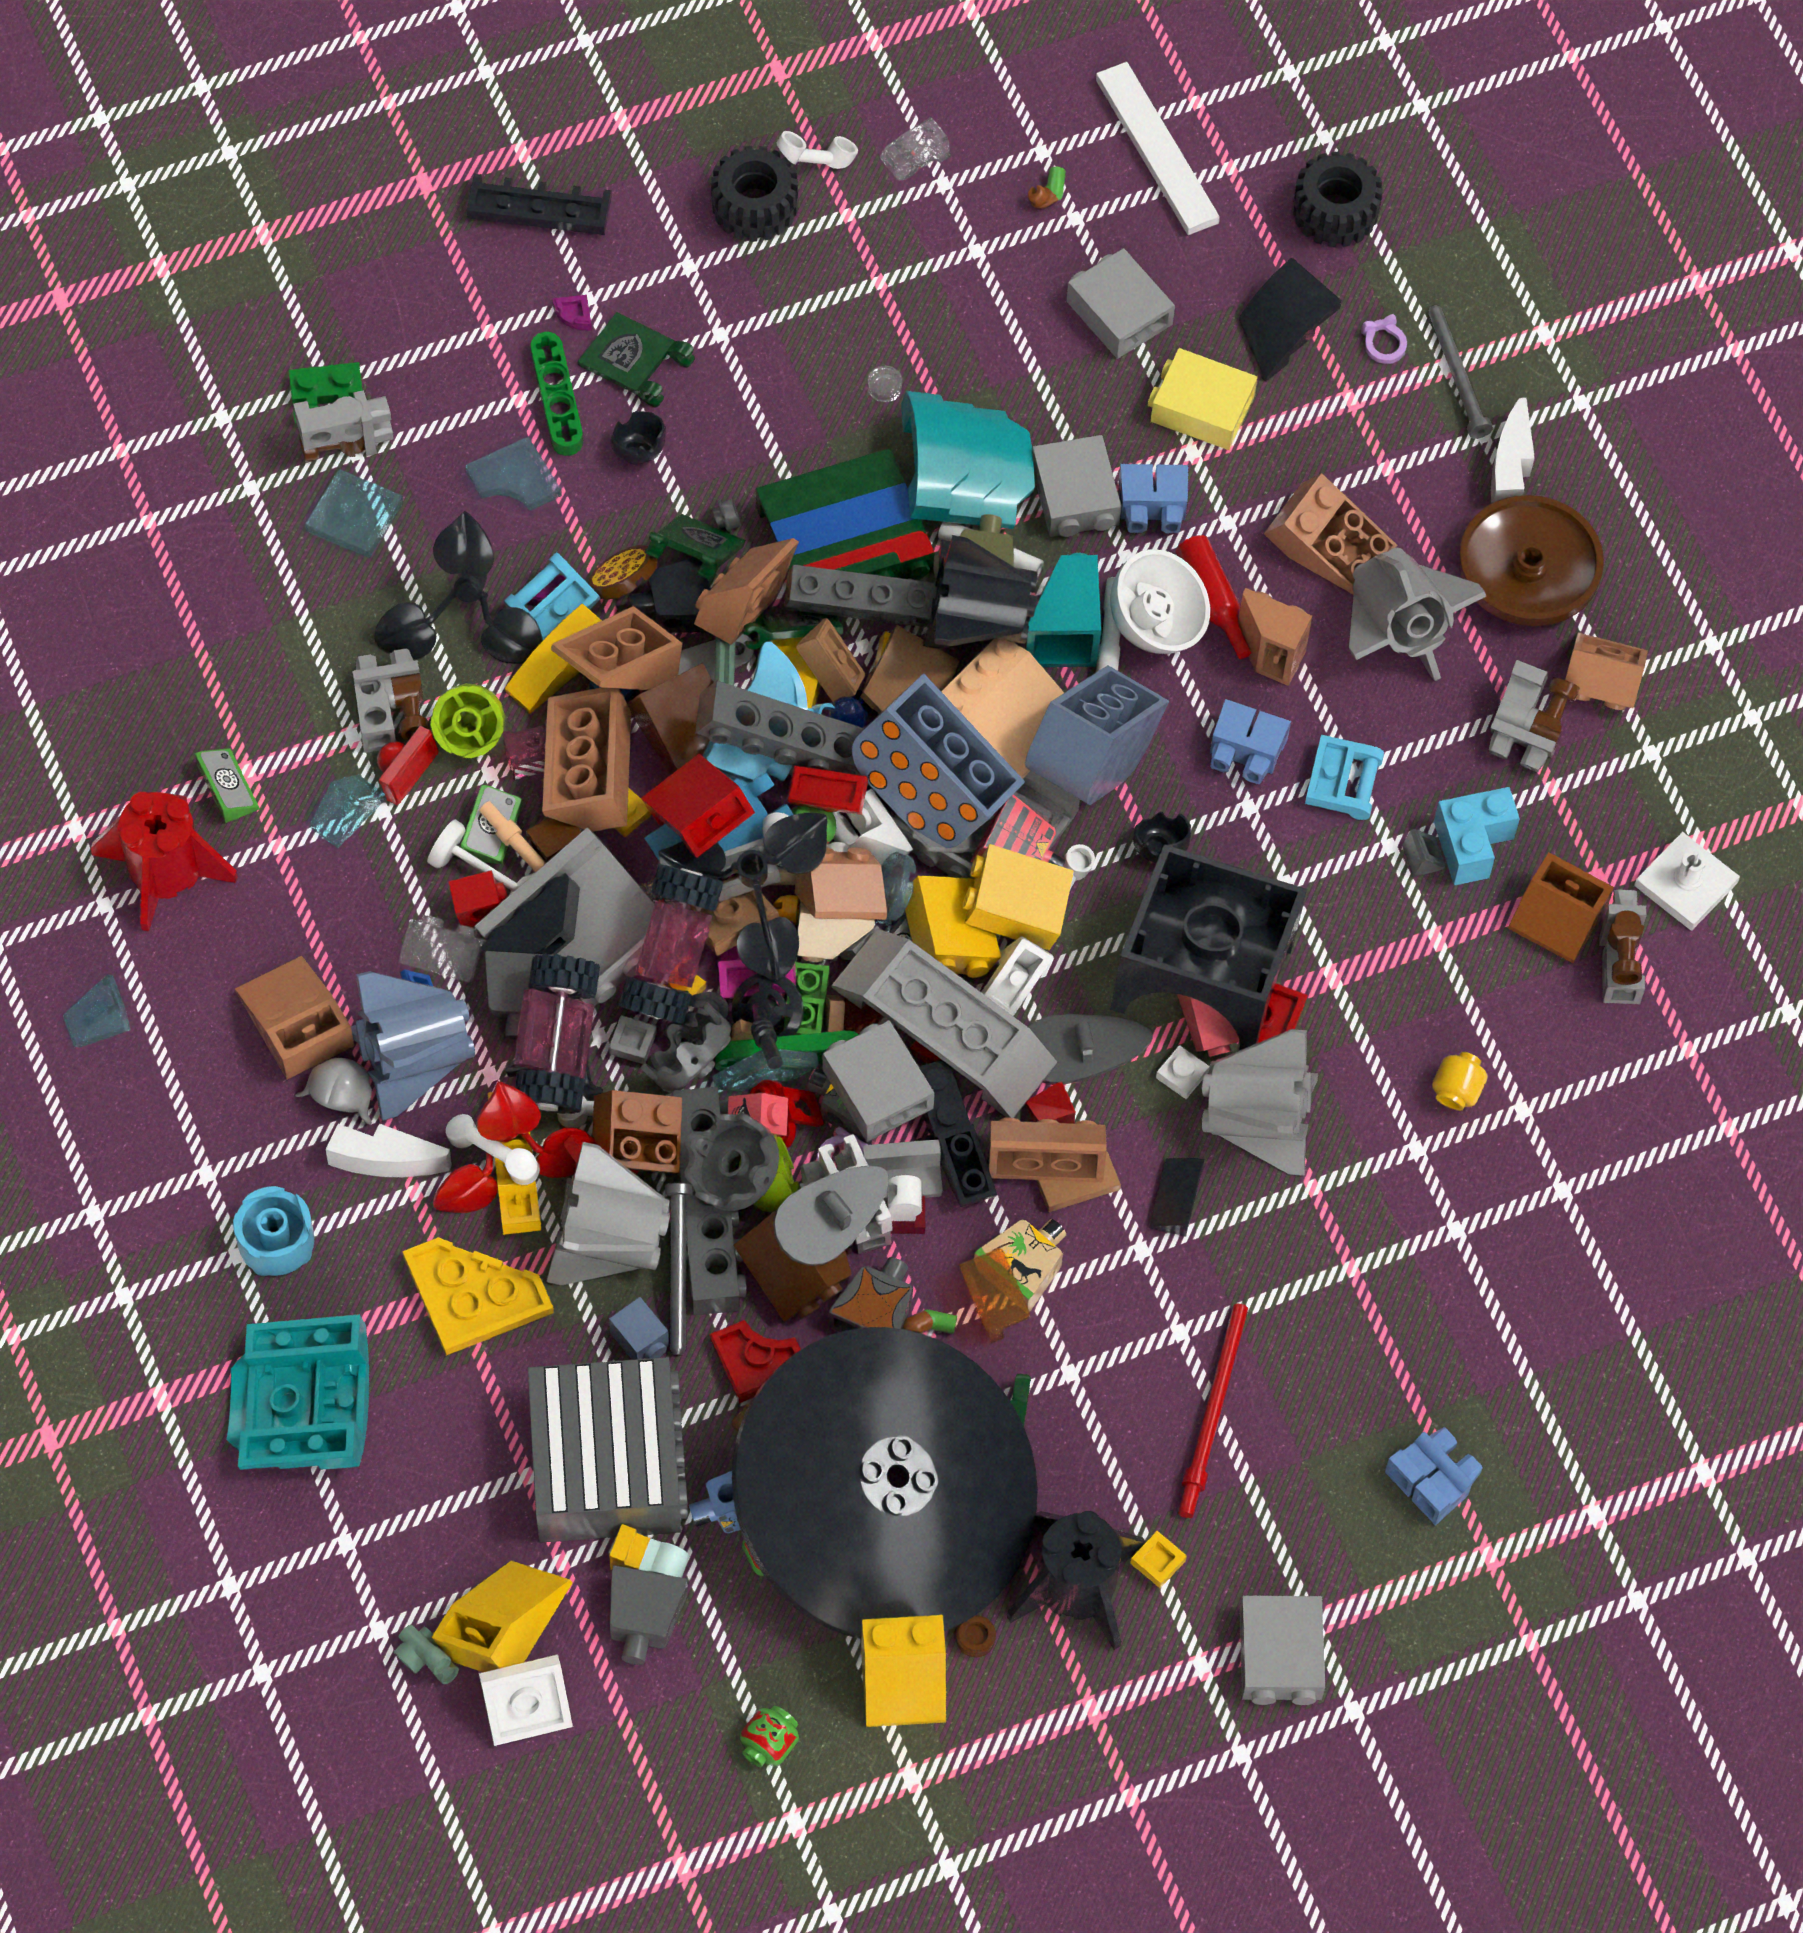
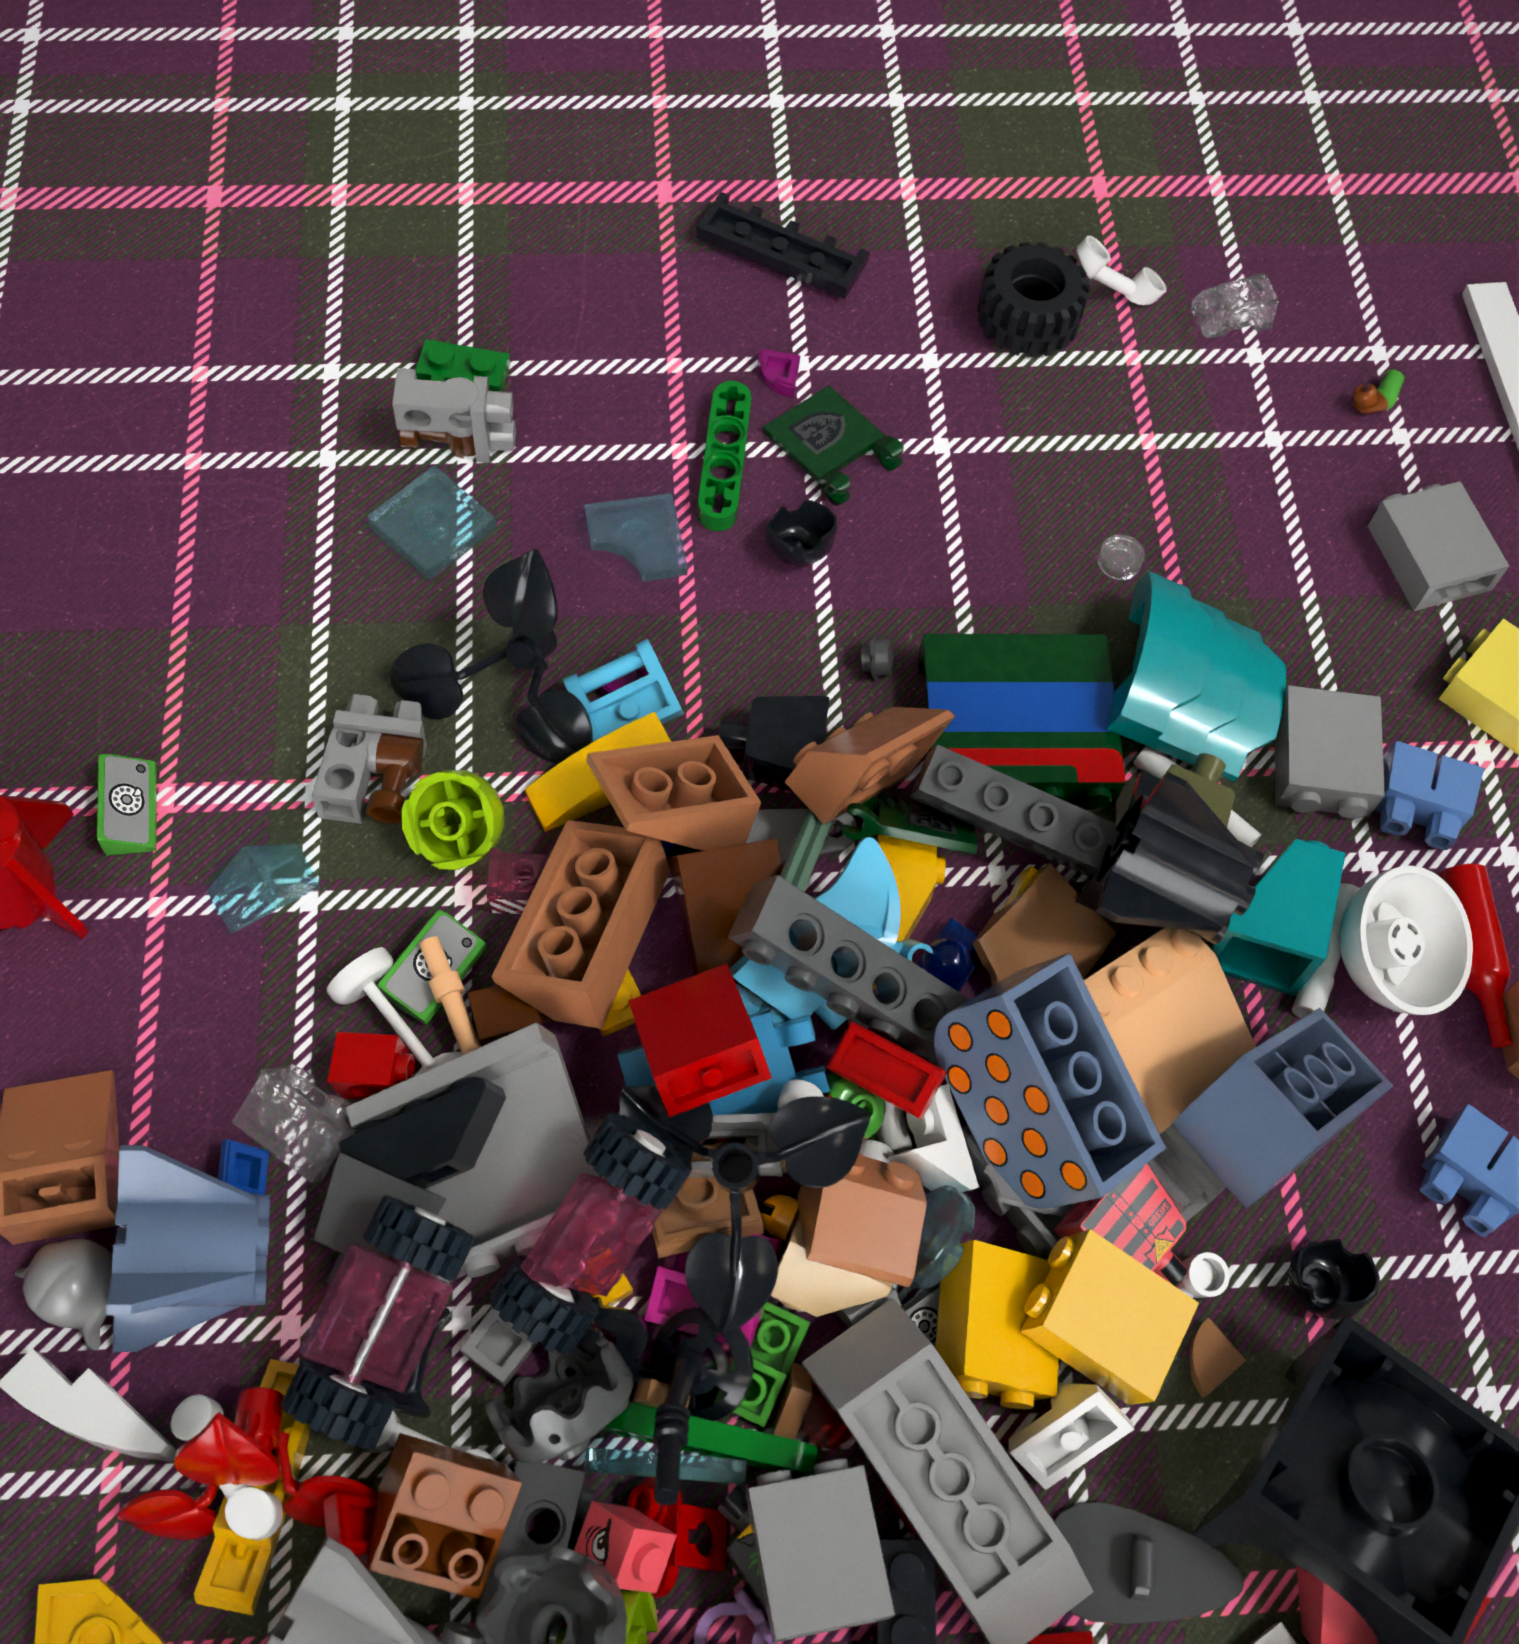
camera: 15 degrees right, 0 degrees up
(405, 764) = (356, 850): red tile -> none
(620, 572) = (719, 686): tile -> none
(698, 540) = (828, 676): dark green flag -> none
(831, 661) = (948, 886): medium nougat slope -> none
(1098, 911) = (1212, 1358): none -> medium nougat tile

